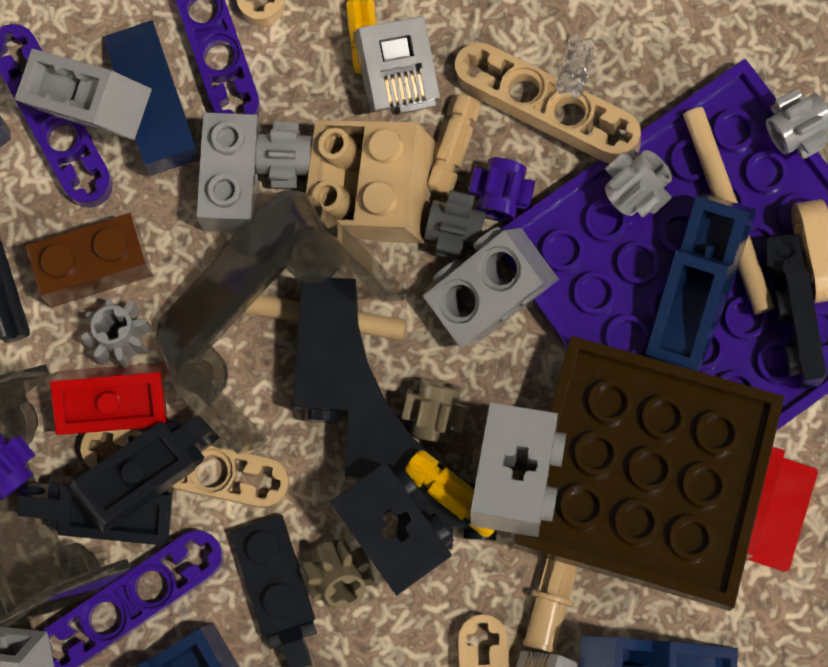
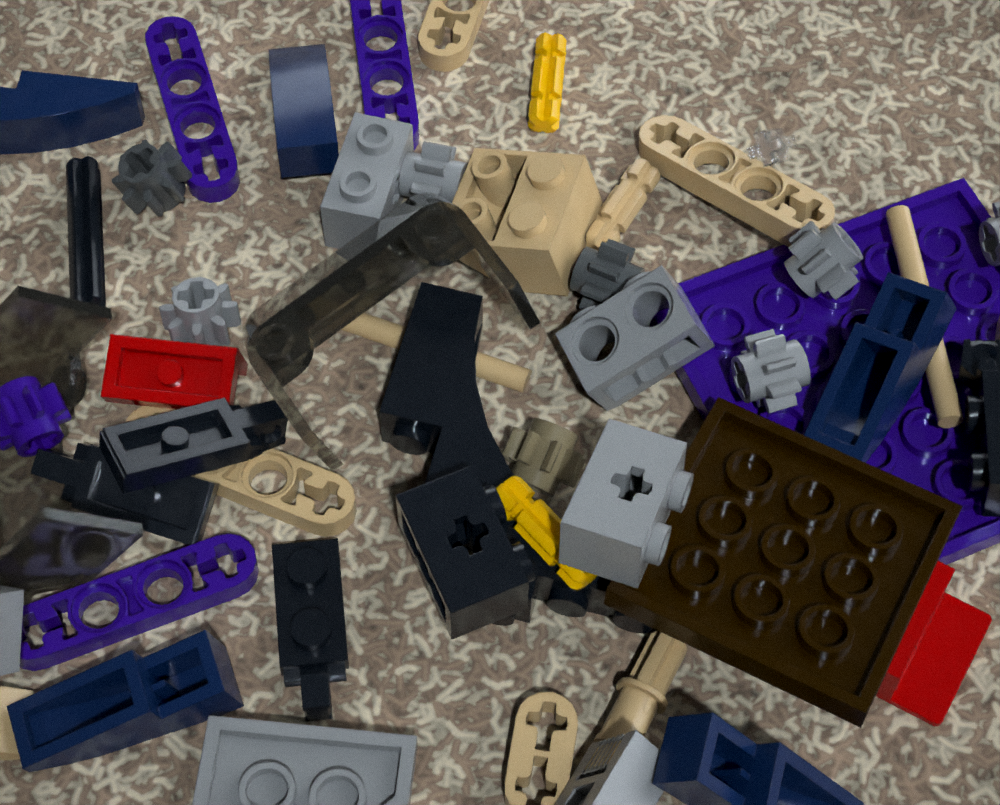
camera: 10 degrees right, 20 degrees down
(43, 190) = (151, 177): none -> dark grey gear
(83, 93) = (231, 65): light grey brick -> none
(89, 260) = (191, 238): reddish brown brick -> none
(338, 574) = (383, 591): dark tan gear -> none
(397, 66) = (577, 111): light grey piece -> none
(501, 188) = (669, 244): dark purple gear -> none
(610, 301) = (770, 371): none -> light grey gear

